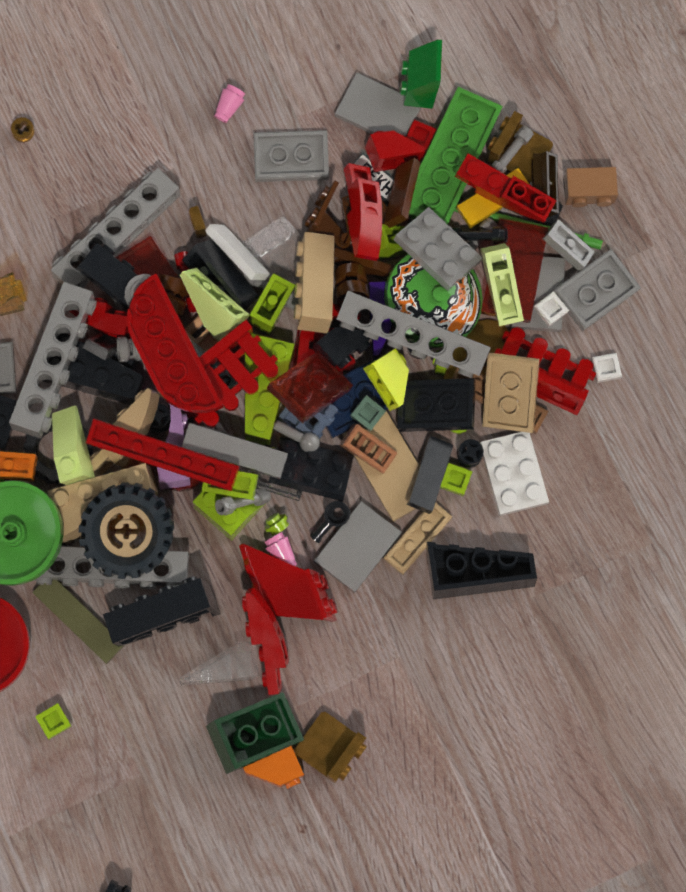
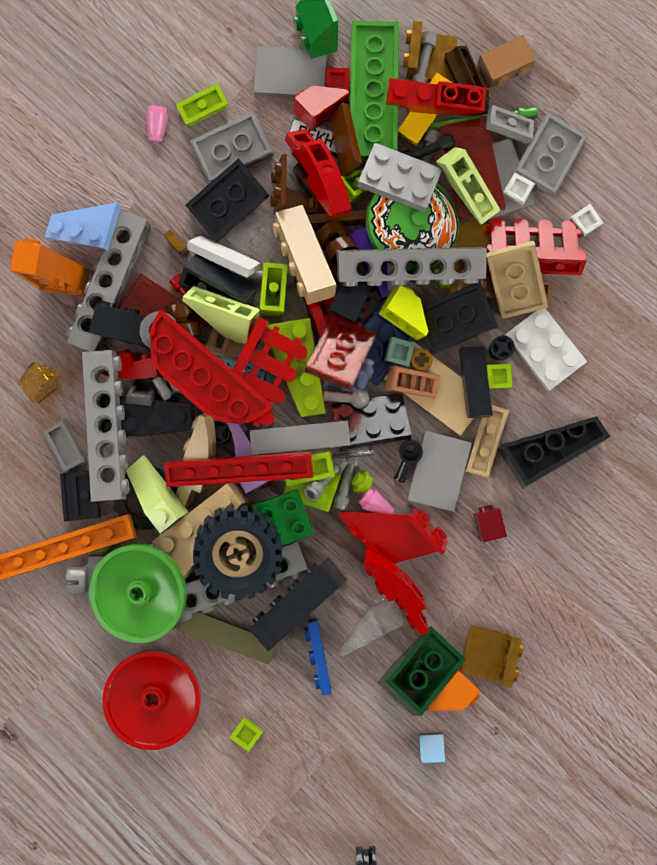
camera: 10 degrees left, 10 degrees up
(66, 194) = (48, 269): none -> orange wedge
(117, 170) = (85, 227): none -> light blue wing
(158, 675) = (317, 657): none -> blue plate
(191, 522) = (288, 515): none -> green bracket
(231, 815) = (431, 748): none -> slope
(249, 534) = (341, 501): none -> light grey bar
(264, 202) = (227, 200): none -> black plate
(280, 105) = (202, 105): none -> lime plate
(383, 423) = (416, 354): none -> pearl gold bush
(385, 617) = (489, 523): none -> dark red brick

